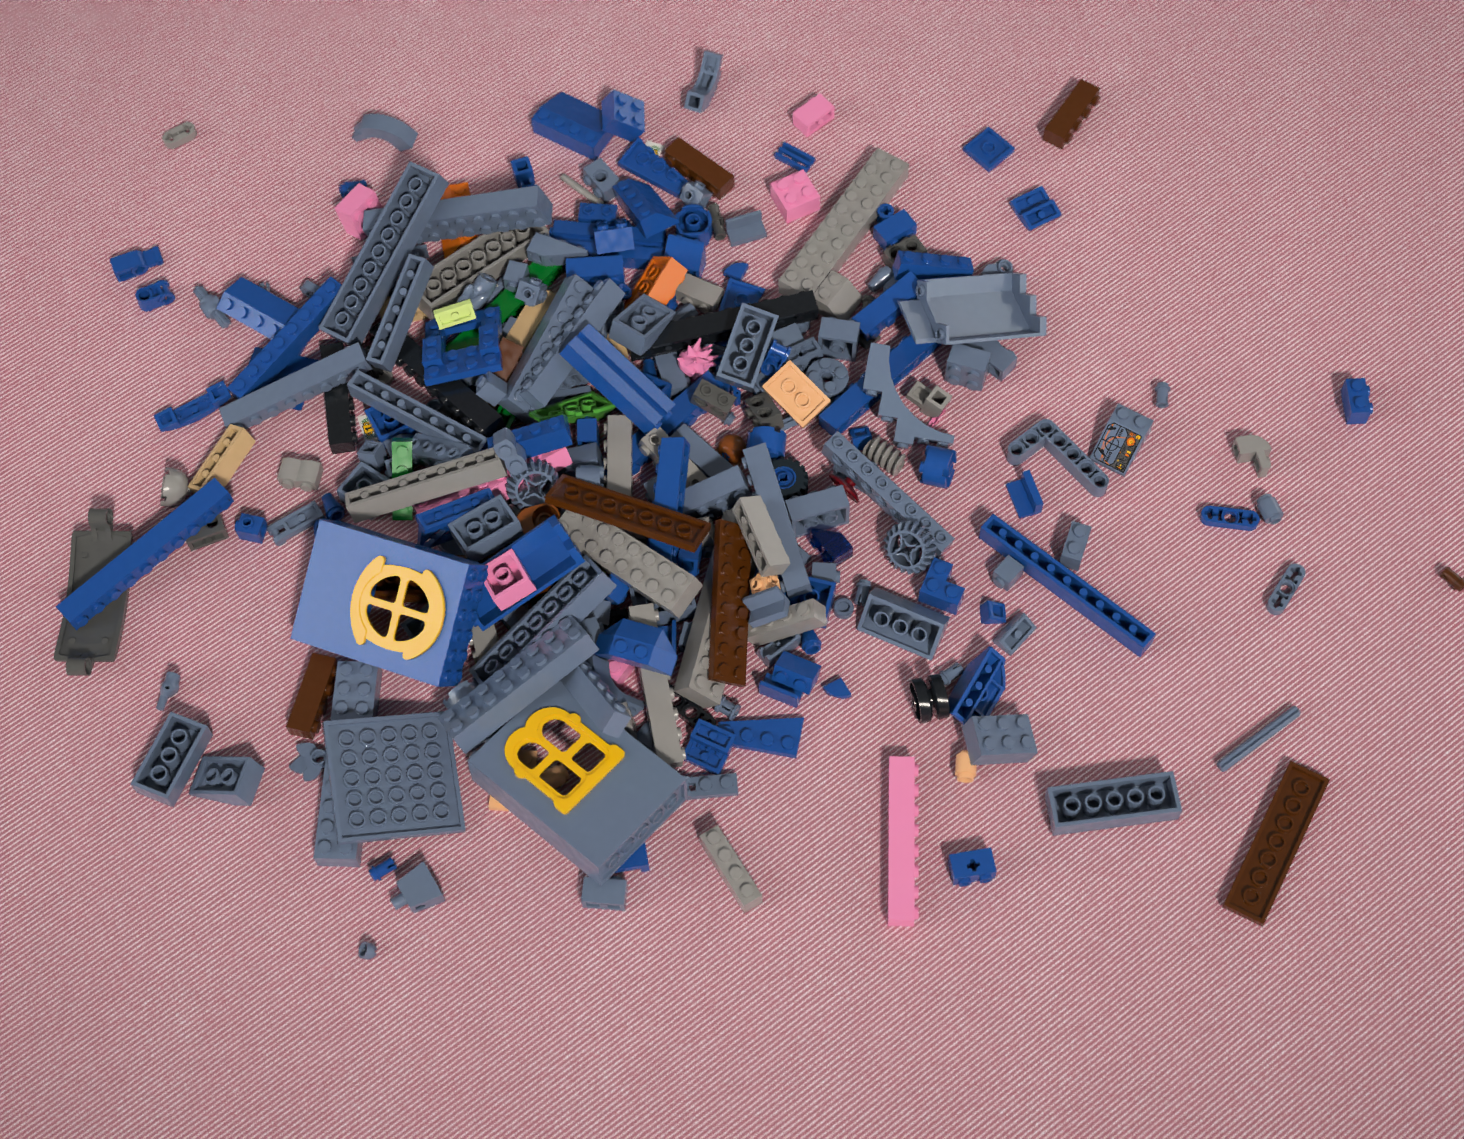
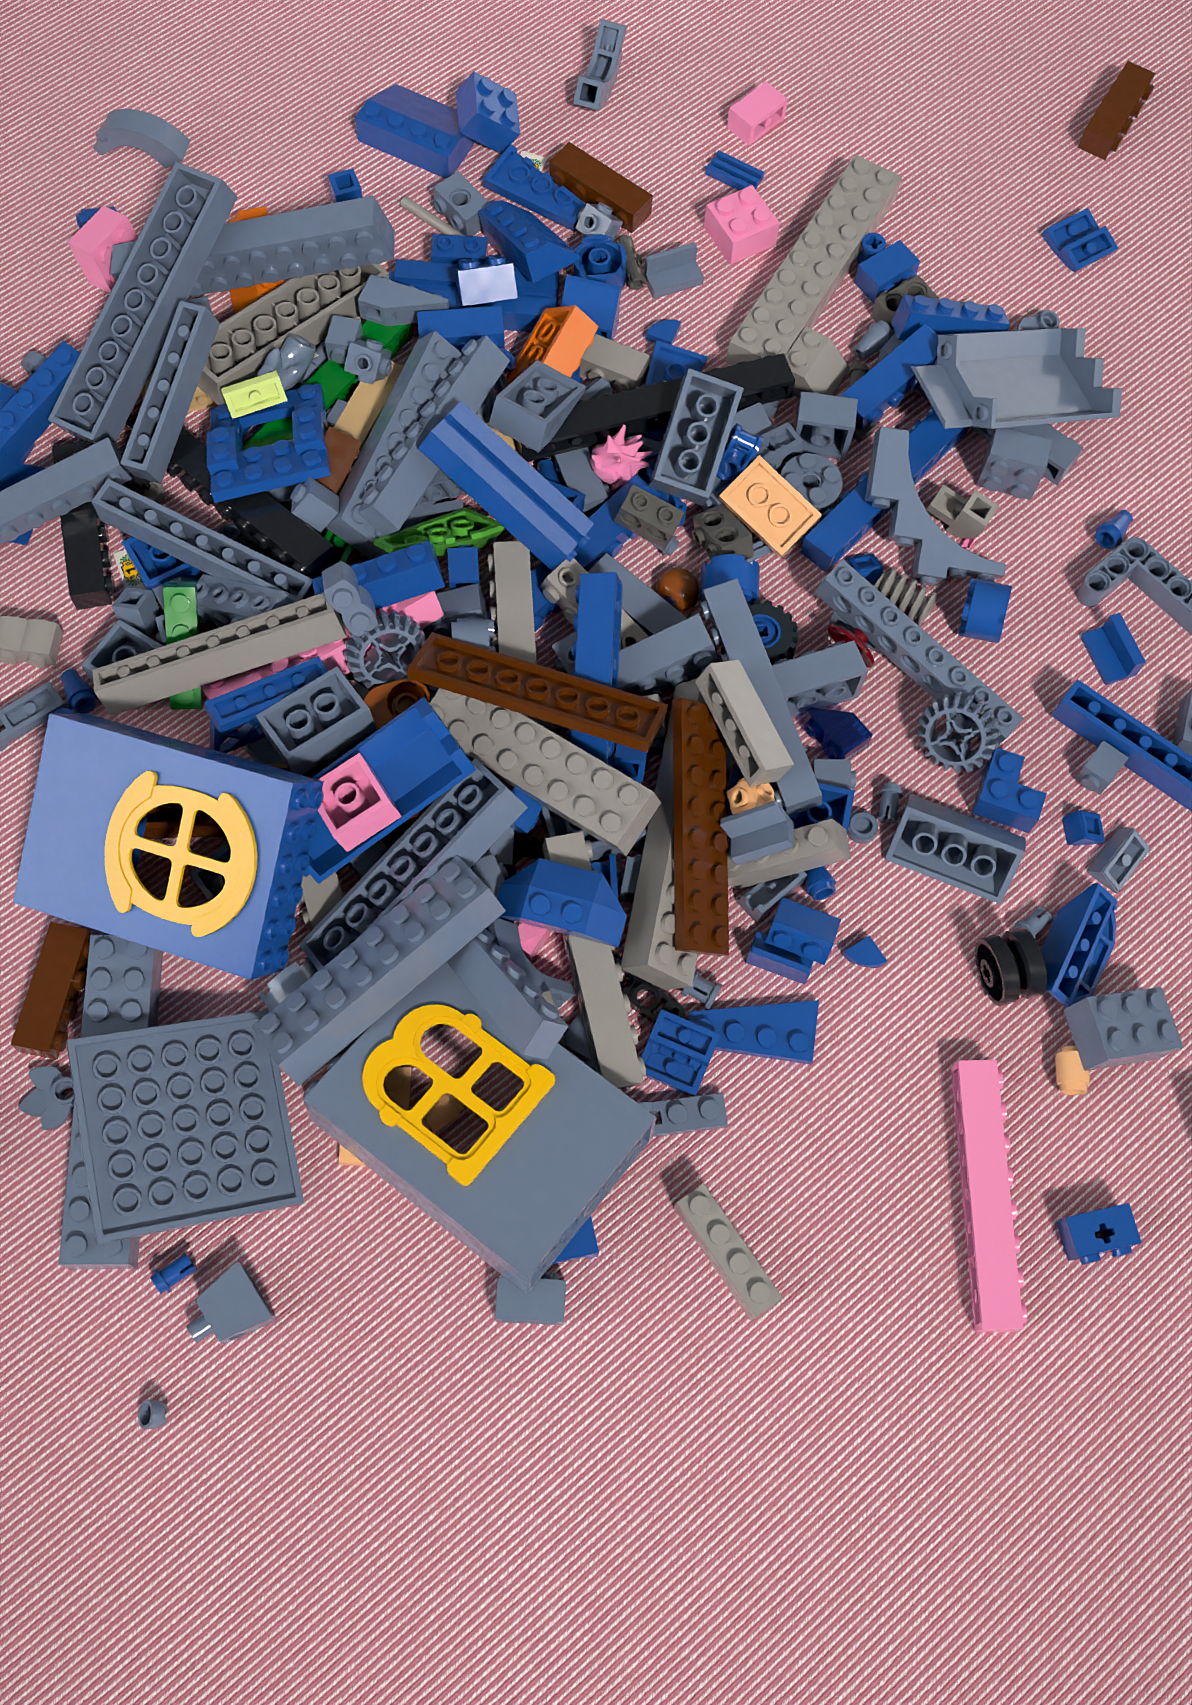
camera: 10 degrees left, 5 degrees up
(988, 149) = (1005, 160): blue tile -> none
(1035, 413) = (1111, 532): none -> blue cone

